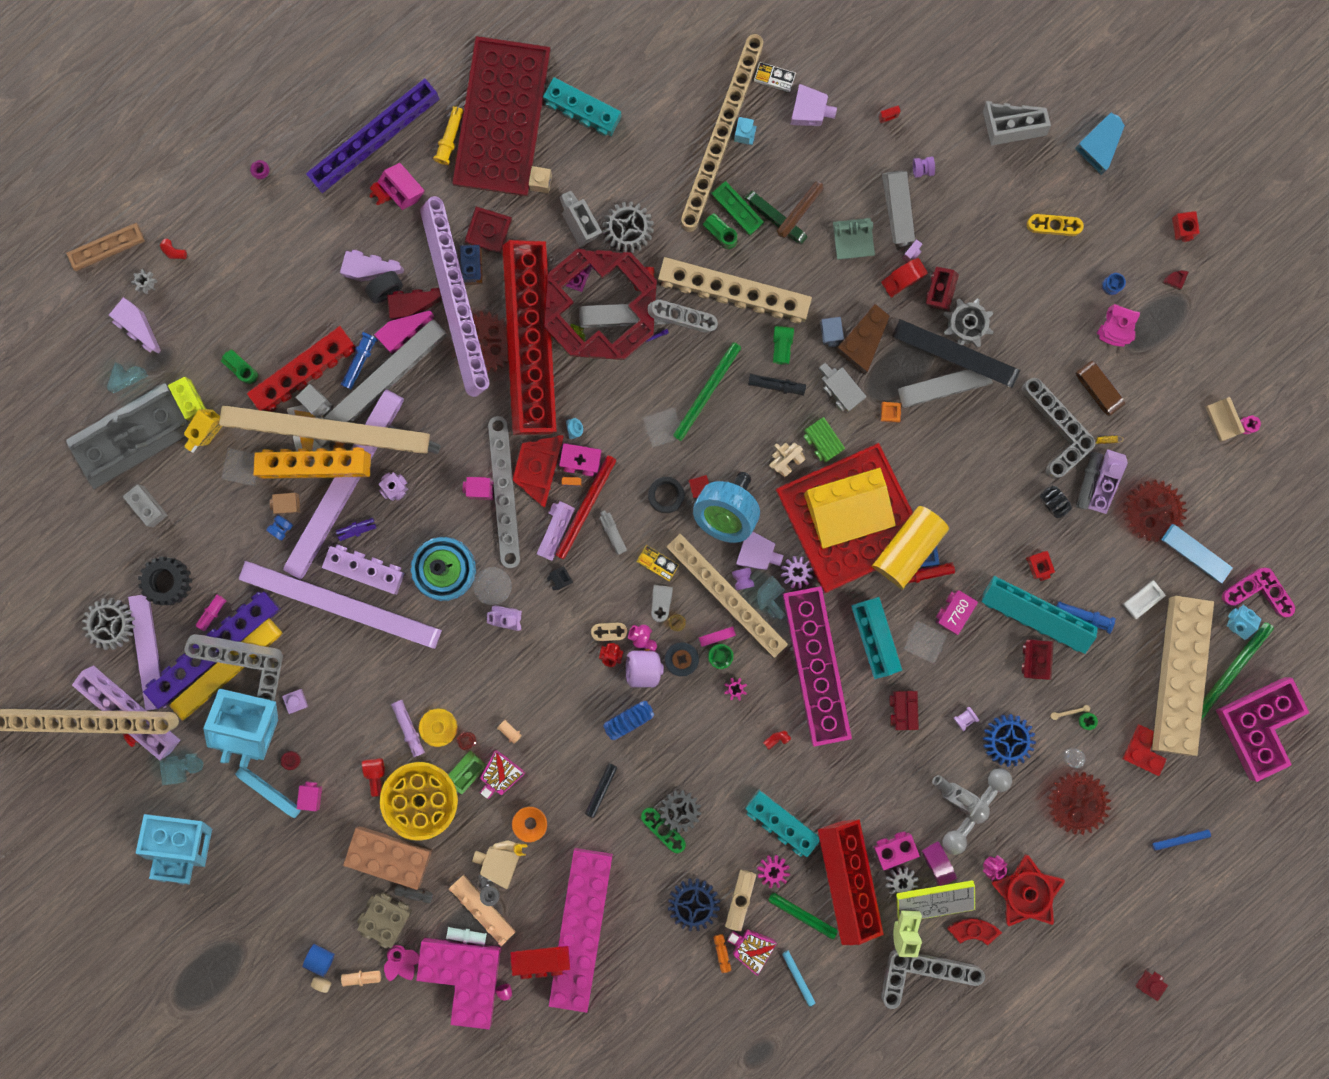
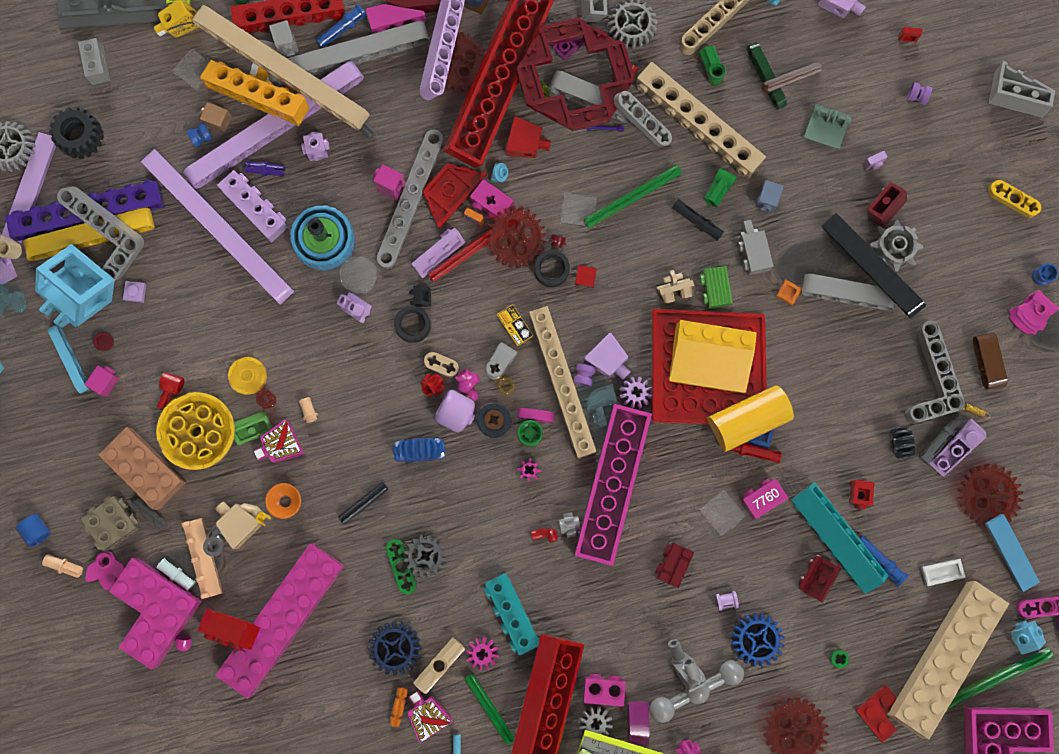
camera: 25 degrees right, 5 degrees down
(210, 612) = (102, 179): dark pink axle -> none
(321, 984) = (24, 553): tan tile -> none
(410, 734) = (220, 363): lavender pin -> none
(550, 607) = (414, 310): none -> black tyre
(584, 385) = (526, 139): none -> red torso
(603, 483) = (530, 245): none -> clear red gear
(612, 532) = (488, 279): light grey piece -> none
(659, 466) = (557, 241): none -> dark red plate
(727, 509) = (599, 304): dark azure wheel -> none
(737, 208) = (736, 52): green plate -> none
(795, 720) = (569, 524): none -> light grey gear
(864, 339) = (792, 217): reddish brown wedge -> none
(876, 638) = (680, 486): teal brick -> none
(899, 207) = (881, 116): light grey slope -> none
(904, 277) = (858, 178): red brick -> none
(1054, 715) = (809, 638): tan hinge -> none
(1070, 758) = (806, 685): clear wheel -> none

